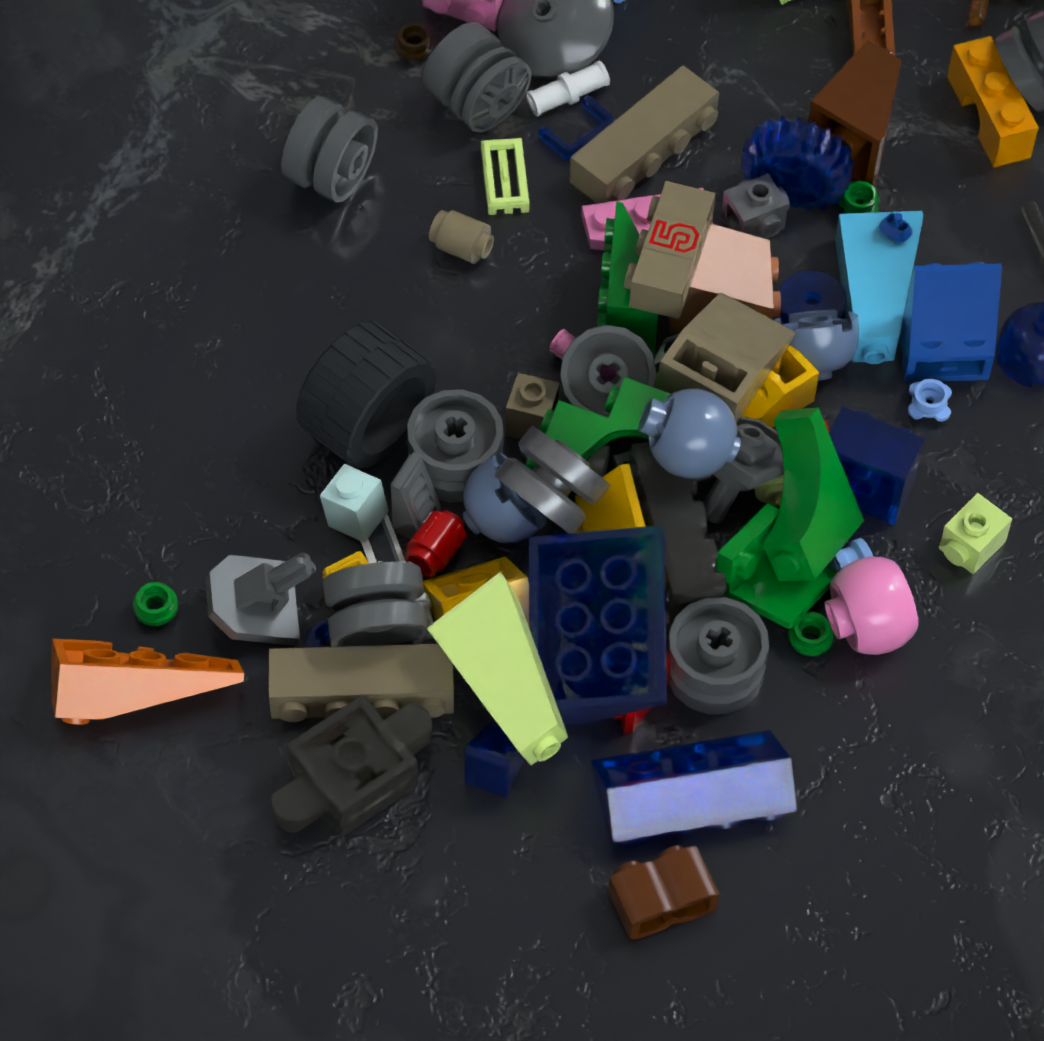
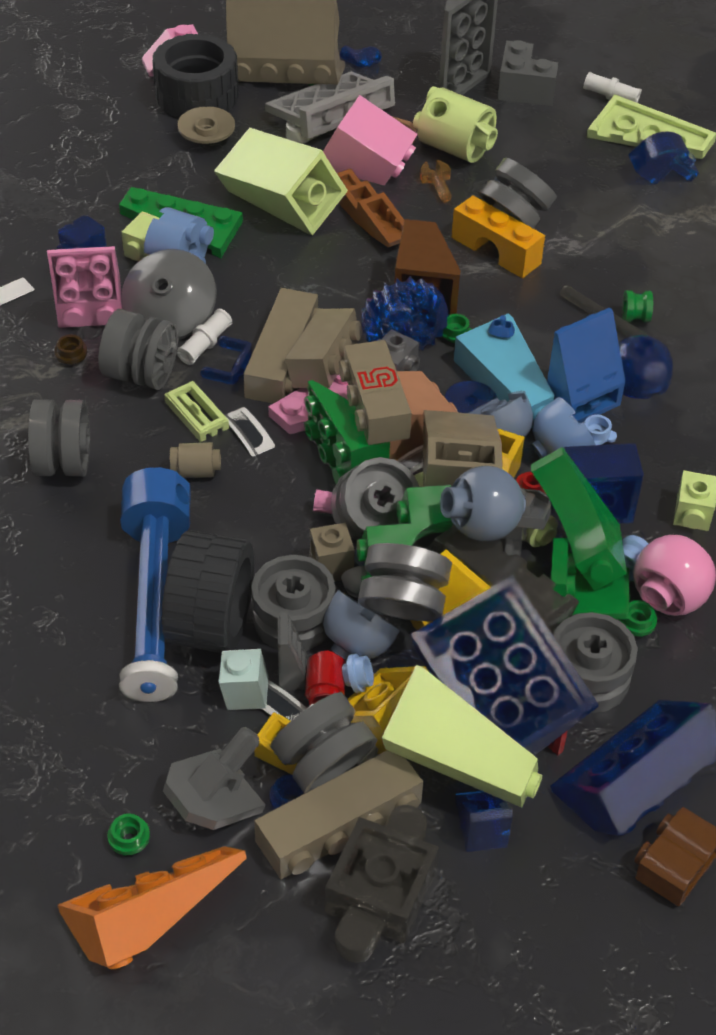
camera: 30 degrees left, 10 degrees down
(379, 280) = (154, 513): none -> blue piece
(471, 551) = (358, 672): none -> light blue plate
(546, 225) = (250, 431): none -> sticker
(686, 156) = (322, 347): none -> dark tan brick
(875, 385) = (557, 428): none -> medium blue cylinder

